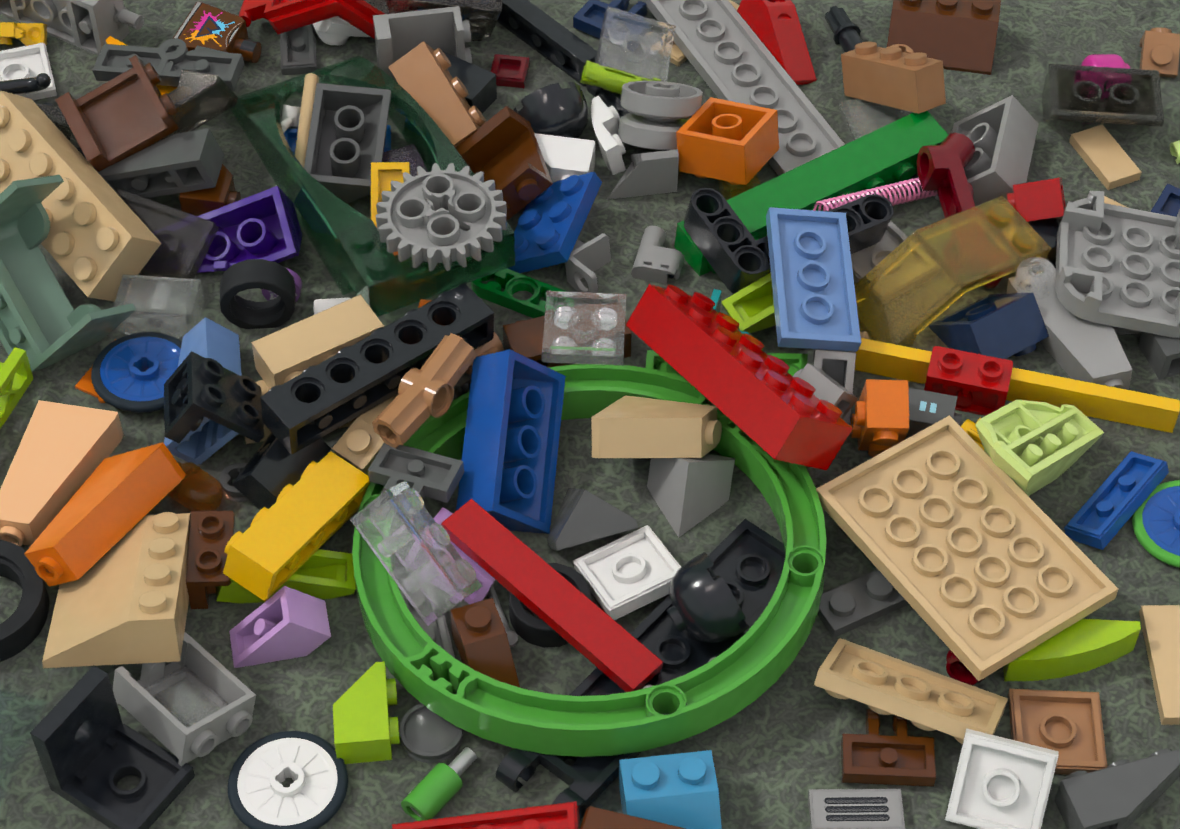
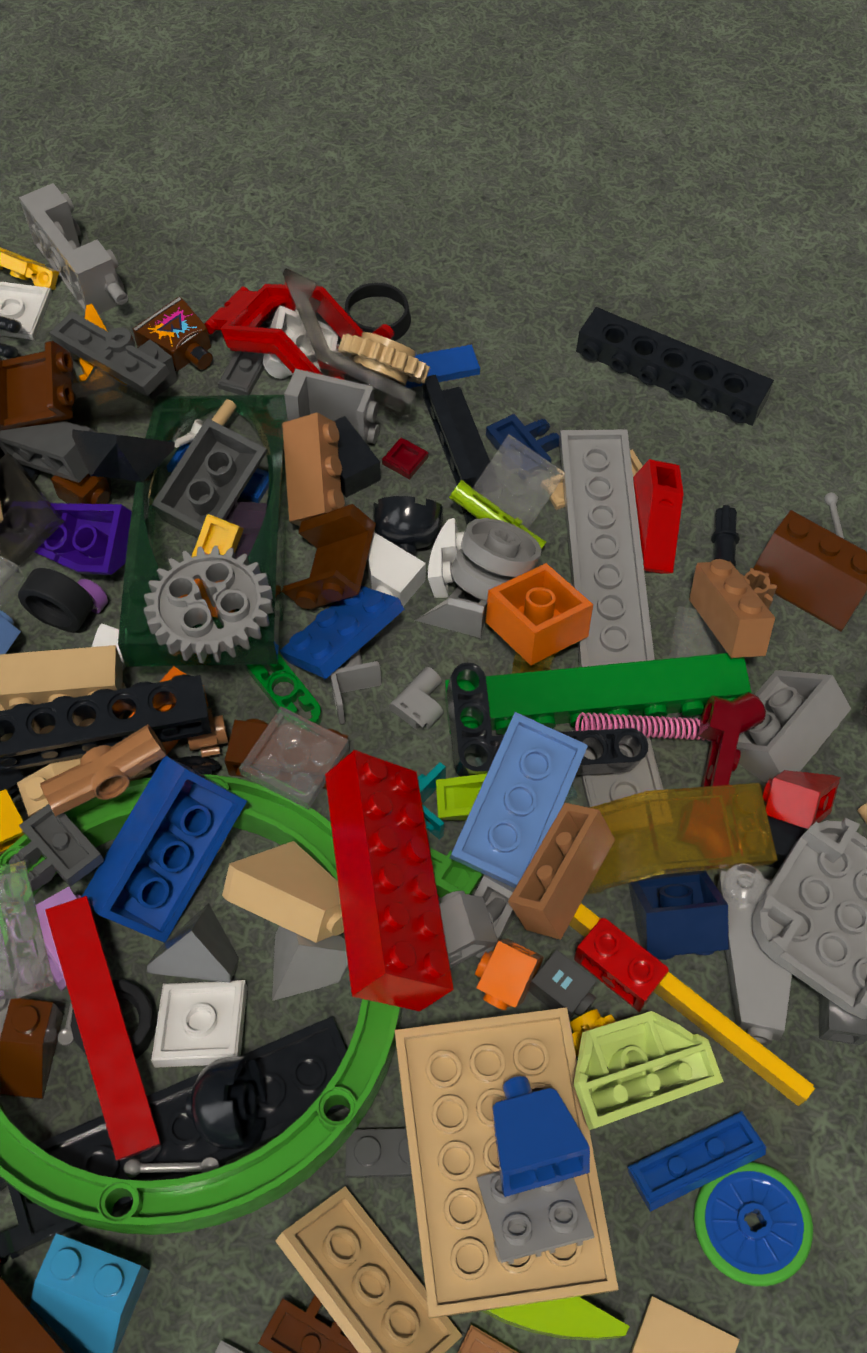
camera: 25 degrees right, 10 degrees up
(256, 136) = (120, 455): none -> black slope
(882, 316) = (562, 870): none -> medium nougat brick
(992, 501) = (536, 1138): none -> blue torso
(1021, 558) = (534, 1218): none -> light grey hinge

